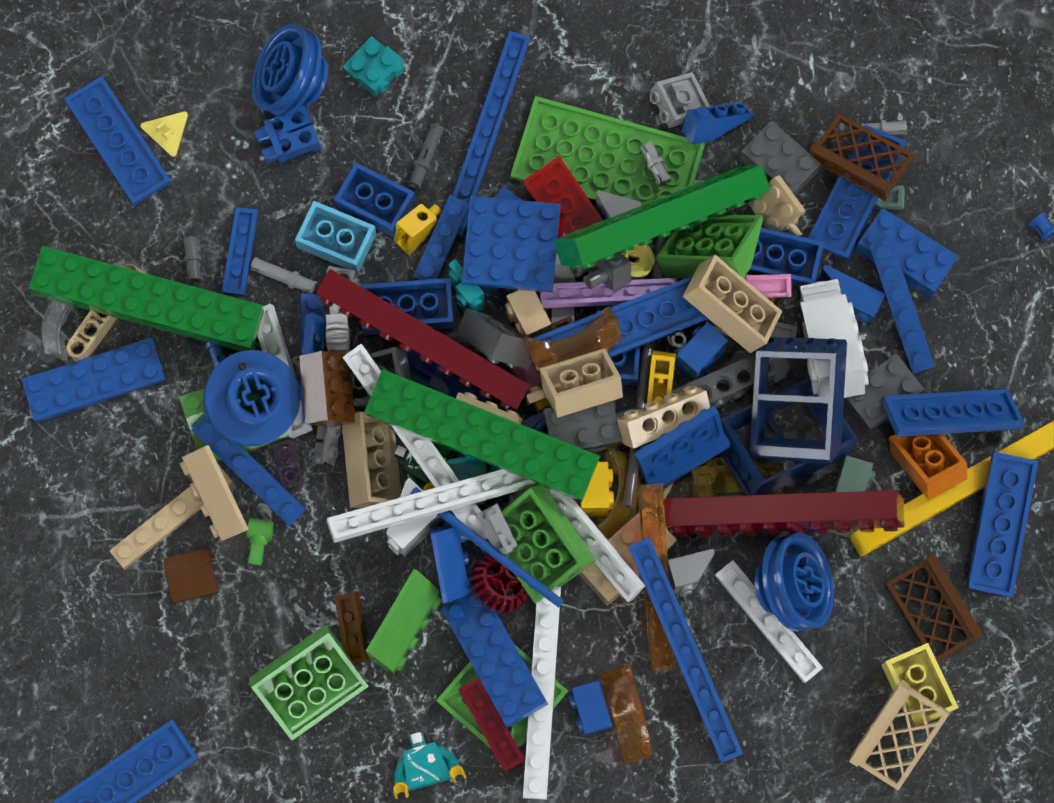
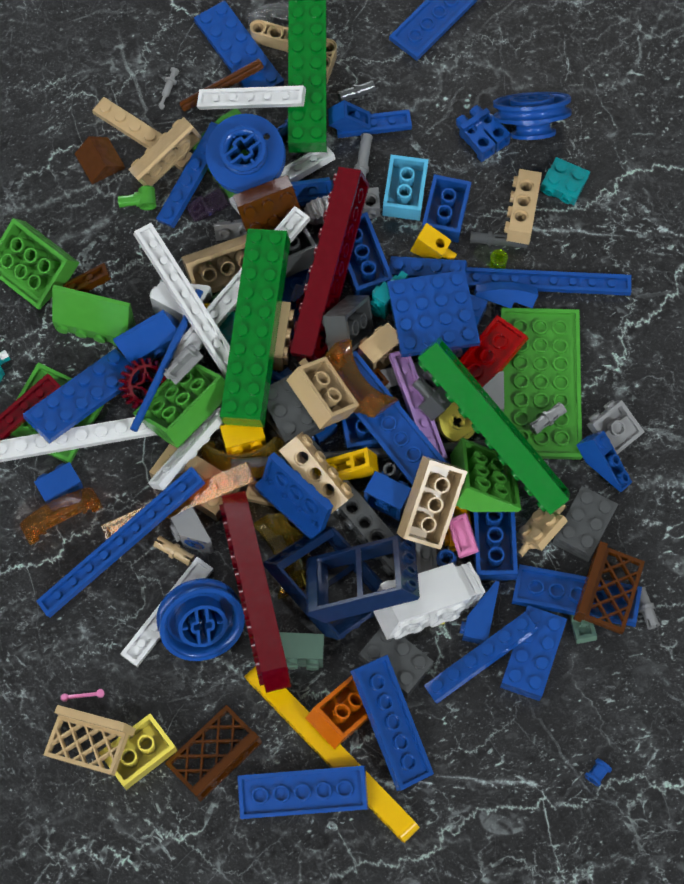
camera: 75 degrees right, 5 degrees down
(118, 472) = (170, 81): none -> light grey piece
(138, 409) = (225, 82): none -> reddish brown axle
(167, 131) = (459, 47): light yellow piece -> none
(178, 374) = (251, 97): none -> white plate
(231, 273) = (349, 117): none -> blue slope
(370, 100) = (524, 206): none -> tan brick
(451, 170) = (498, 259): none -> clear neon green bush
(497, 163) = (507, 293): none -> blue slope
(700, 598) = (174, 550): none -> tan pin
(790, 308) = (446, 555): none -> blue cone
(840, 716) = (99, 693): none -> bright pink hinge

